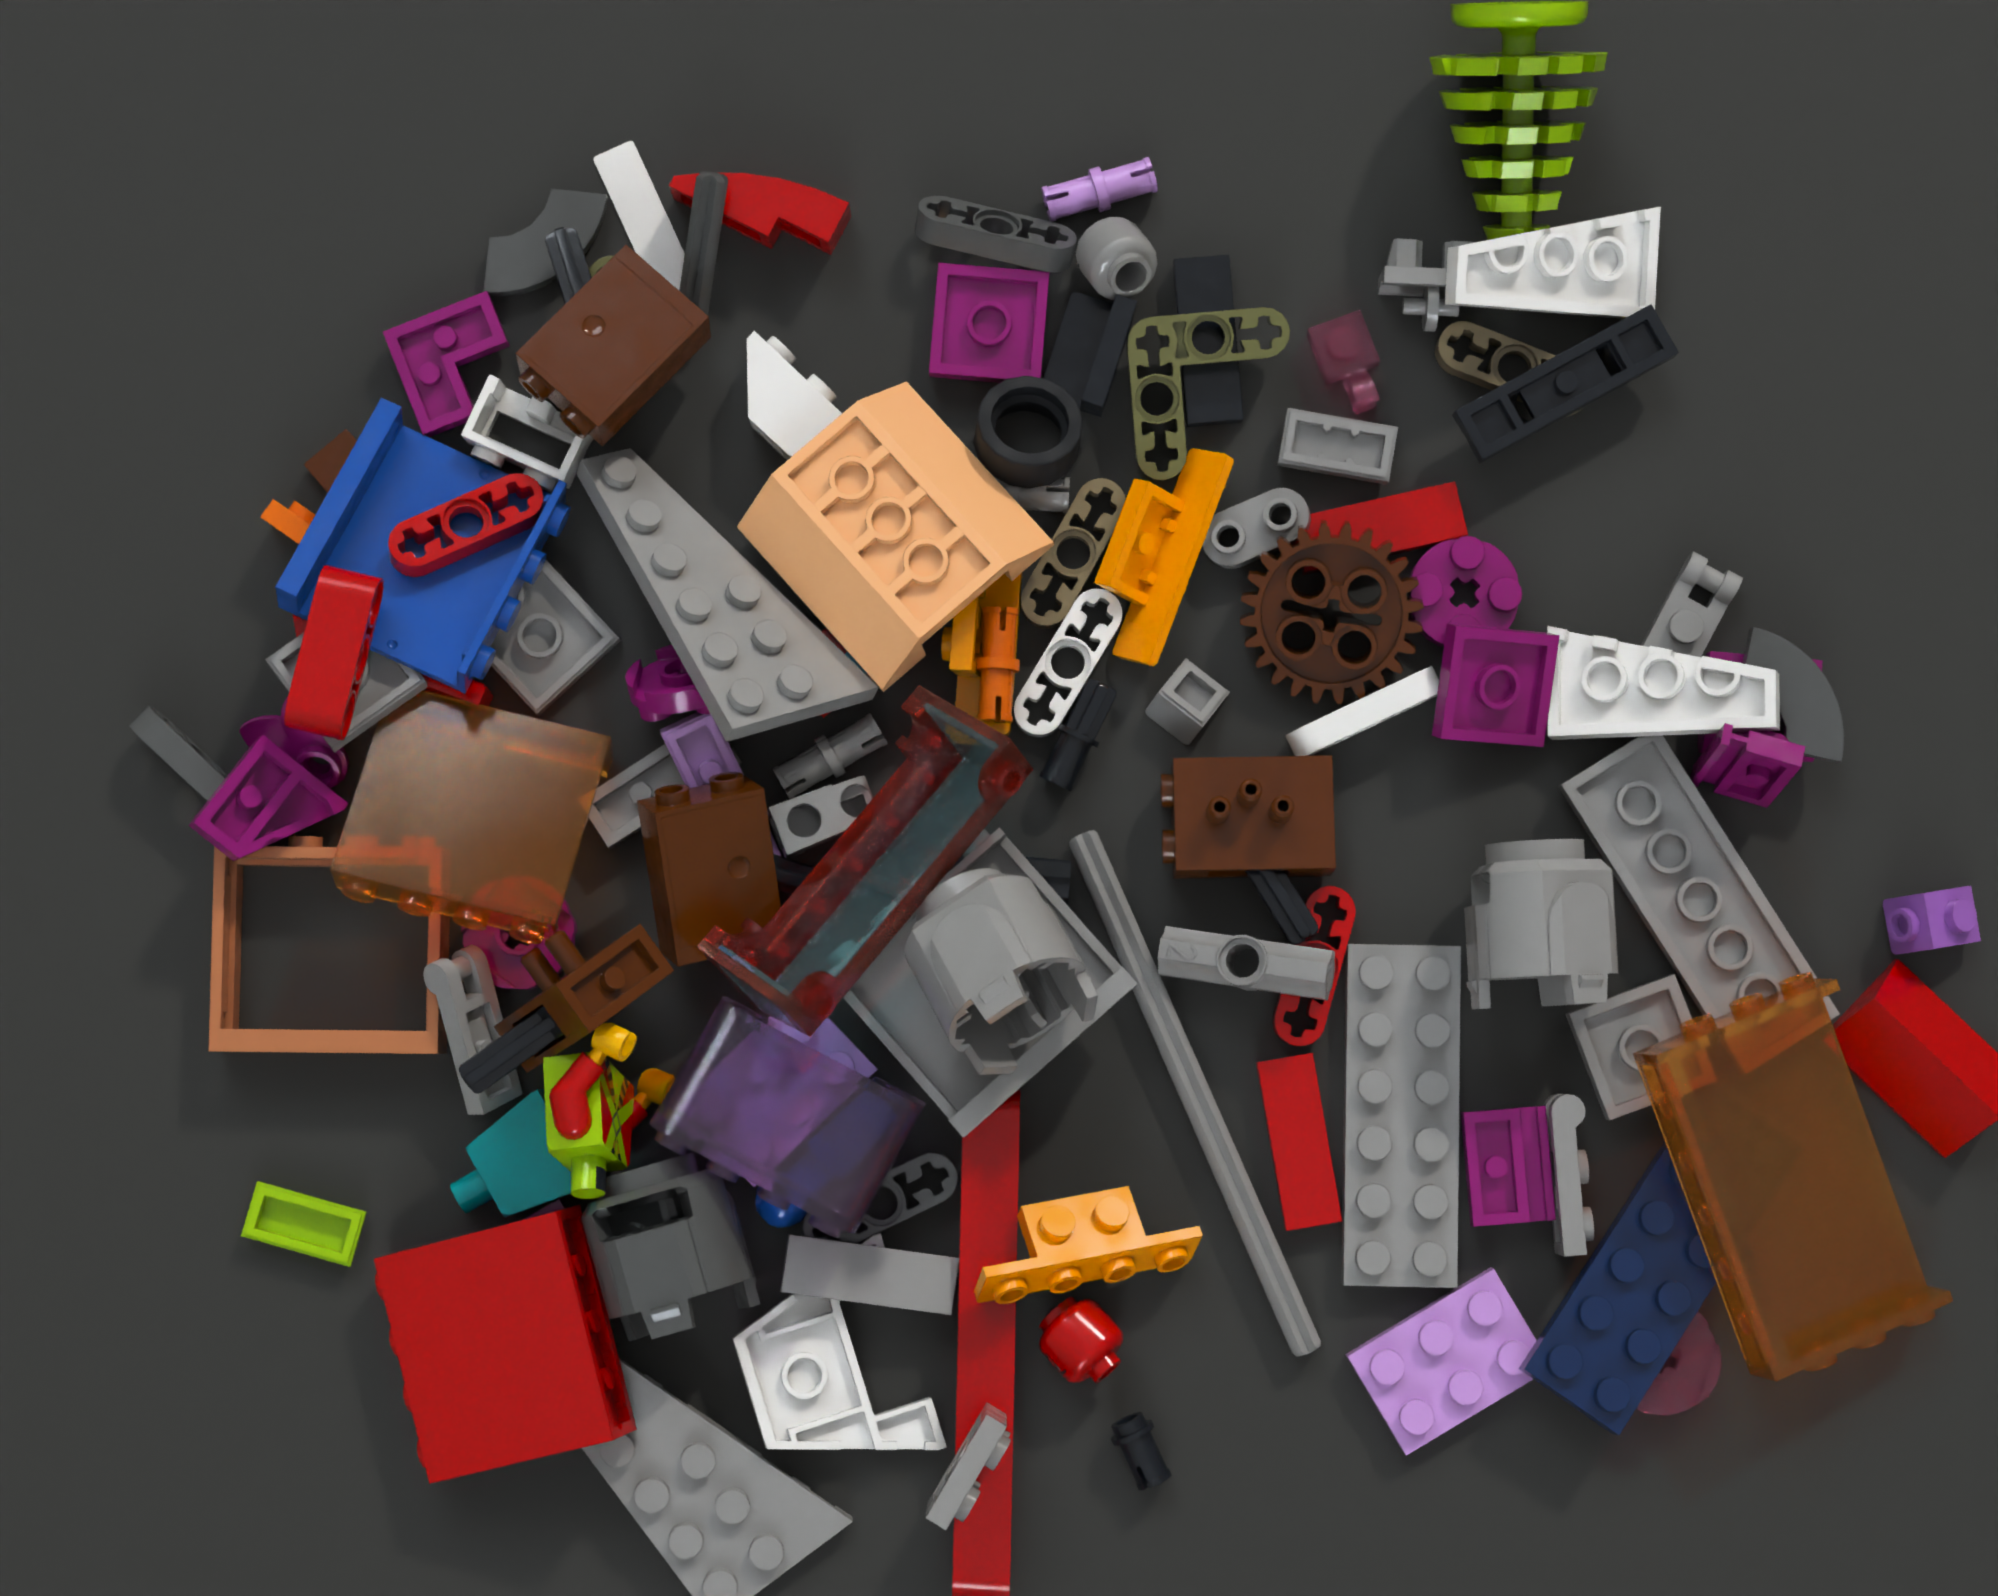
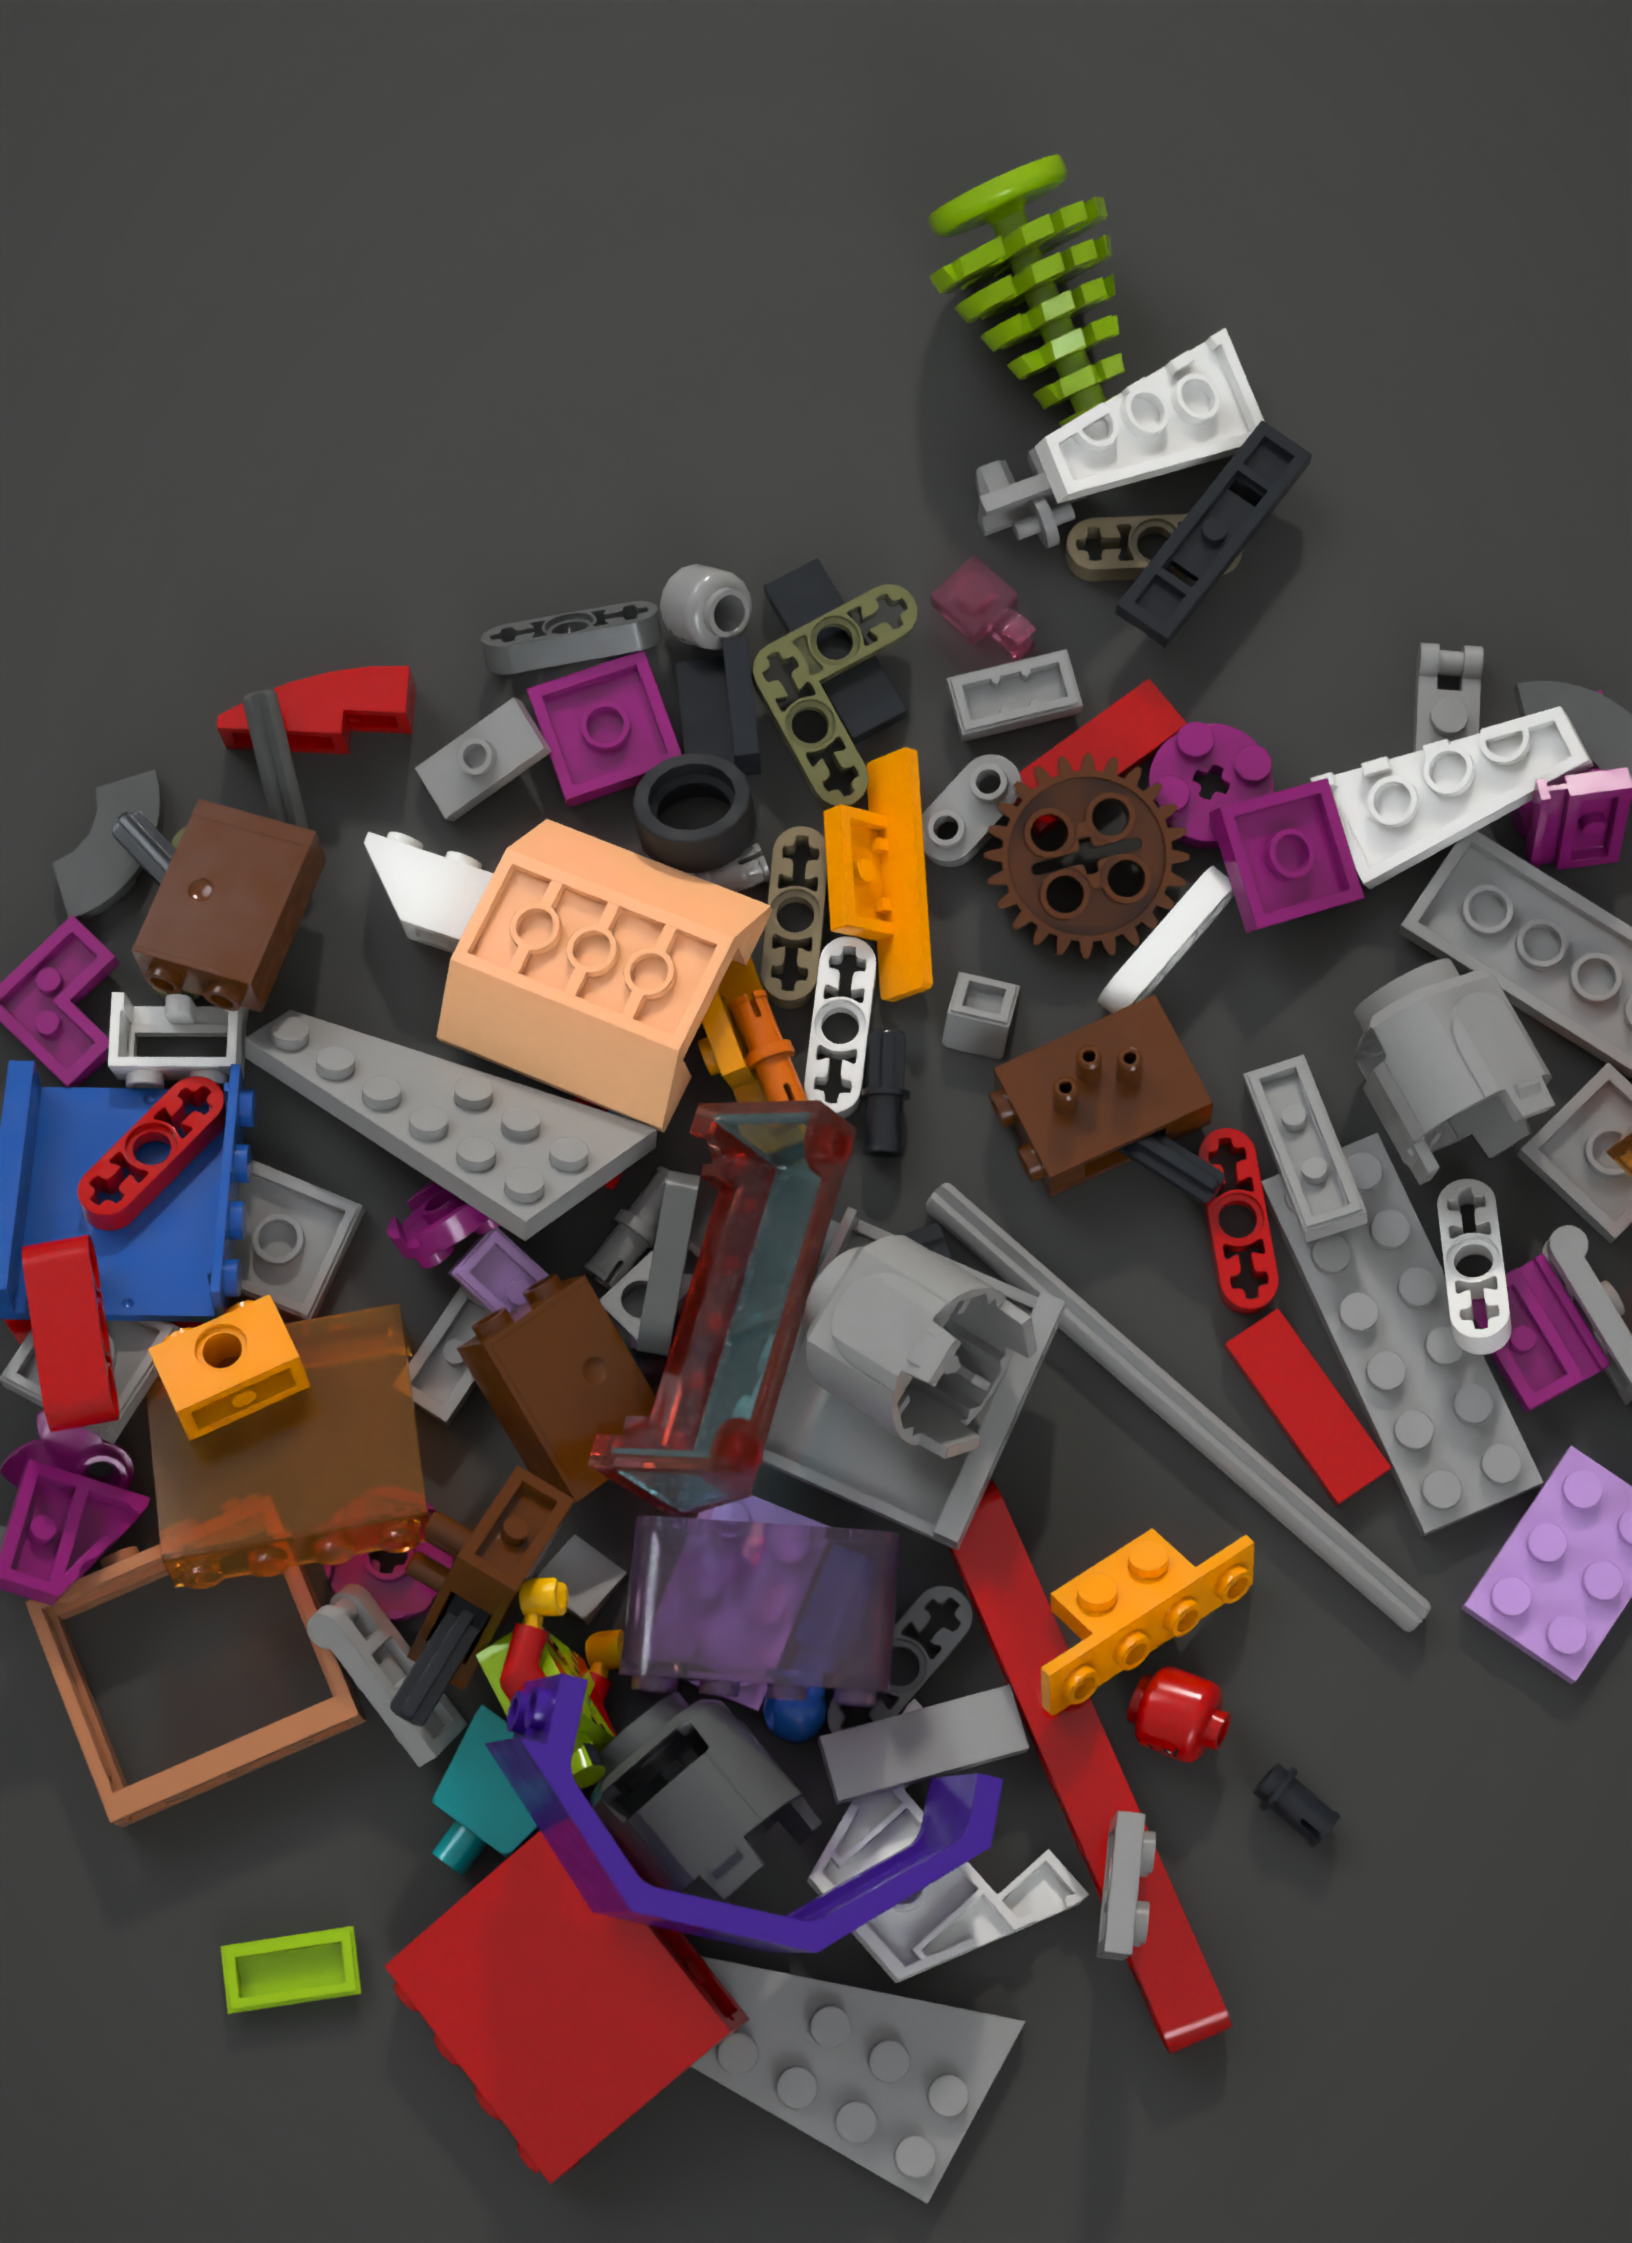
camera: 20 degrees left, 10 degrees down
(475, 752) = (217, 1396): none -> light orange brick
(641, 210) = (192, 766): white sticker -> none
(660, 1019) = (588, 1576): none -> light grey slope
(708, 1391) = (537, 1764): none -> dark purple panel
(837, 804) = (668, 1263): none -> dark grey beam
(877, 307) = (483, 759): none -> light grey plate
(1099, 189) = (657, 551): lavender pin -> none
(1280, 970) = (1126, 1253): light grey piece -> none
(1395, 934) = (1305, 1148): none -> light grey tile
(1486, 1132) = (1462, 1288): none -> white beam

